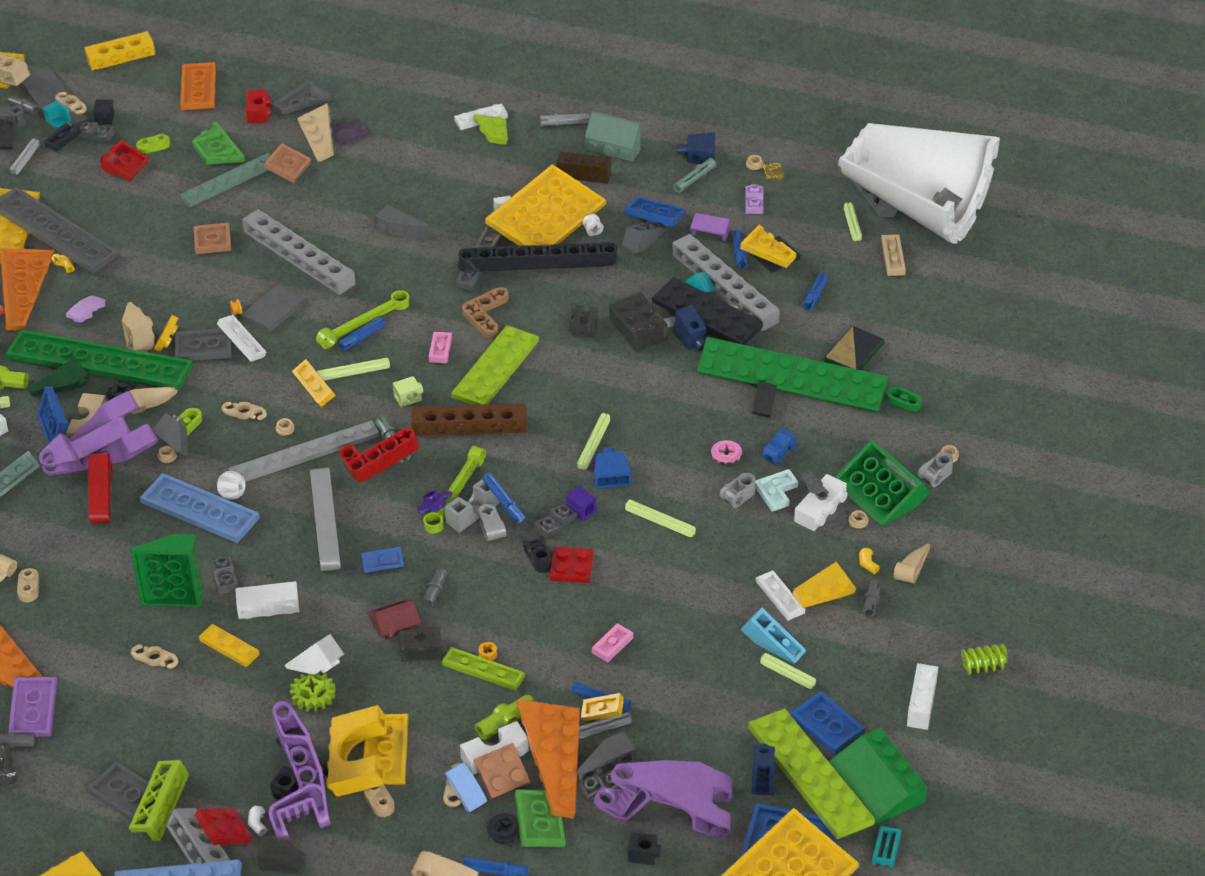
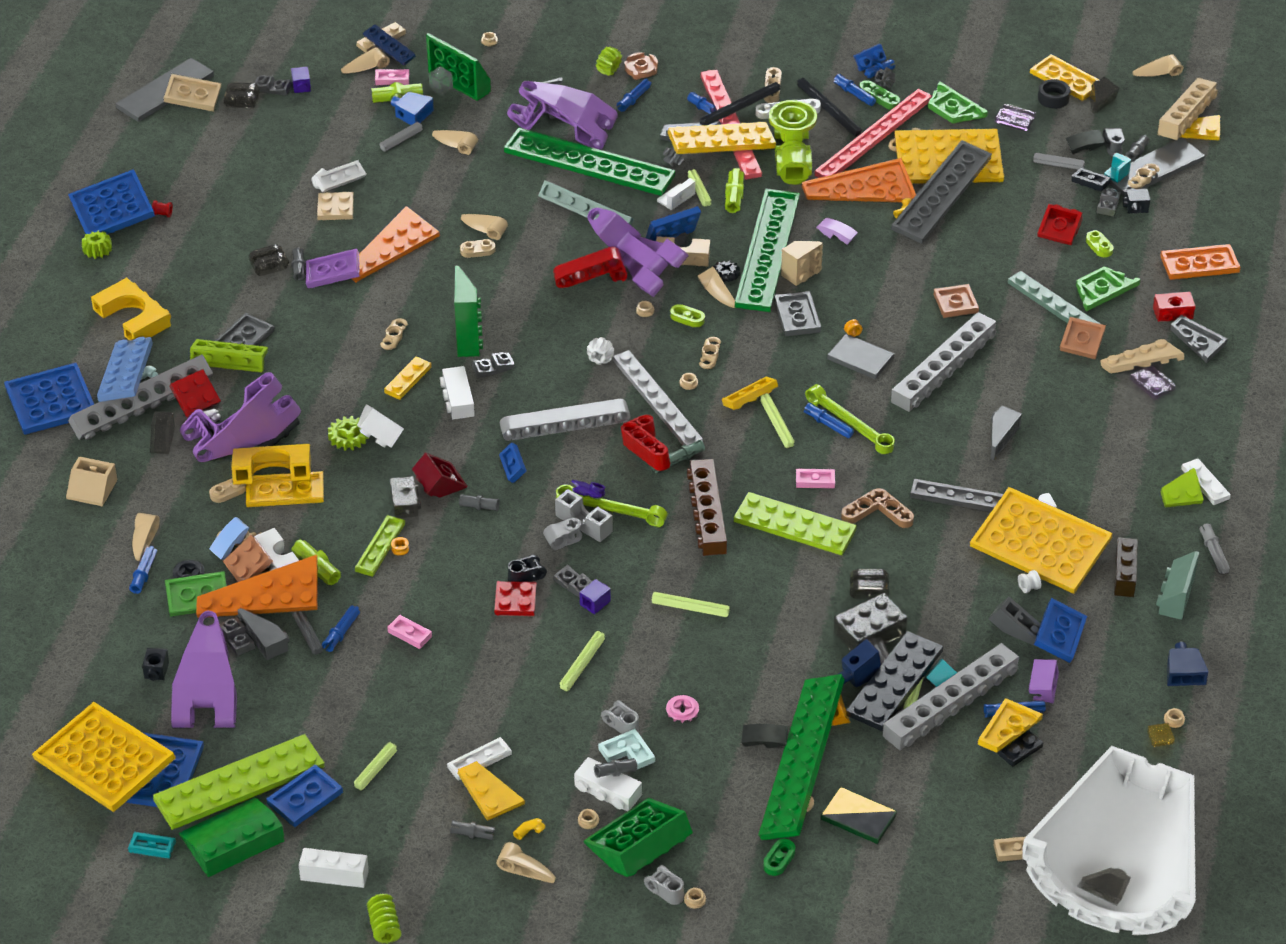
camera: 85 degrees right, 0 degrees up
(64, 378) = (736, 229): dark green slope -> none
(119, 50) = (1242, 198): yellow brick -> none
(169, 329) = (814, 286): yellow plate -> none
(173, 432) = (661, 304): dark grey slope -> none
(199, 508) = (573, 337): medium blue plate -> none
(241, 338) = (803, 334): white plate -> none
(407, 391) = (744, 458): yellowish green brick -> none
(509, 504) = (586, 530): blue axle -> none
(537, 257) = (960, 538): black beam -> none
(602, 707) = (321, 625): yellow plate -> none
(611, 469) = (646, 616): blue torso -> none
(706, 166) = (1157, 675): sand green pin -> none
(754, 199) = (1112, 720): lavender slope -> none
(763, 761) = (242, 741): dark blue torso -> none
(772, 636) = (415, 749): medium azure slope -> none
(776, 450) = (683, 745): blue leg -> none
(812, 295) = (951, 777): blue axle -> none

